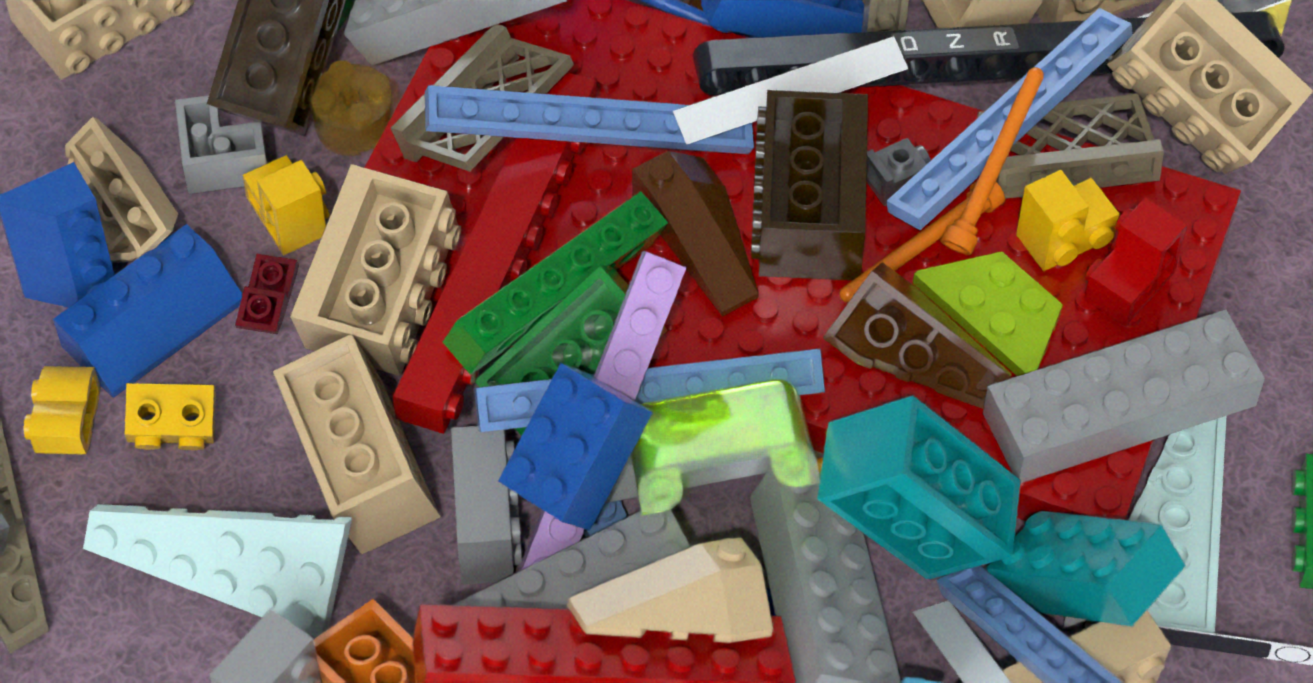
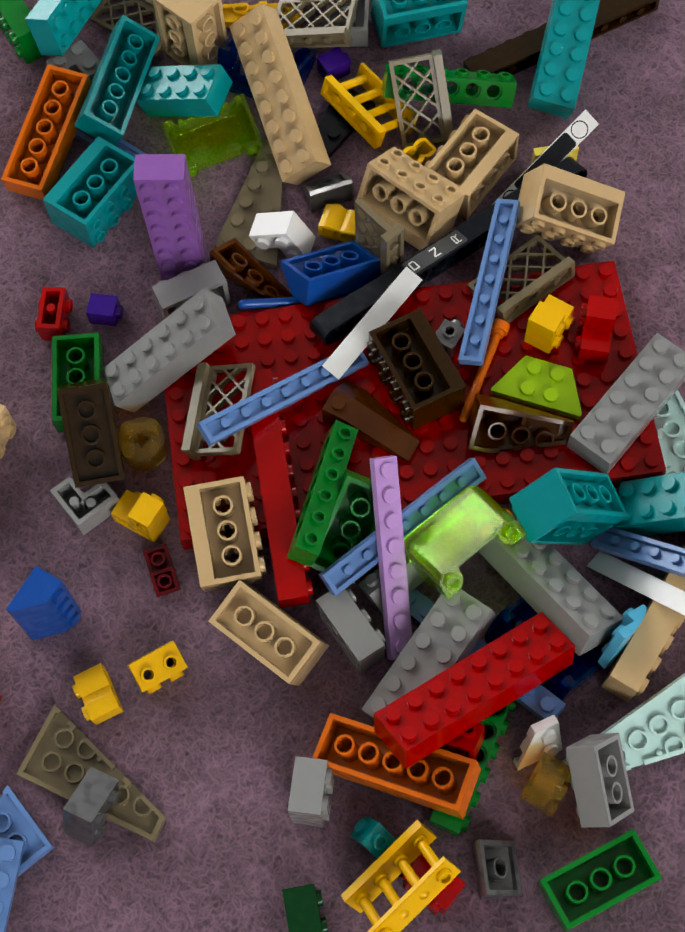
camera: 25 degrees left, 10 degrees up
(128, 198) = (51, 553): tan wedge -> none
(148, 310) = (107, 614): blue slope -> none
(232, 556) = (243, 728): light aqua wing -> none
(575, 447) = (392, 580): blue brick -> none
(697, 590) = (501, 628): tan wedge -> none
(962, 234) = (501, 356): orange piece -> none

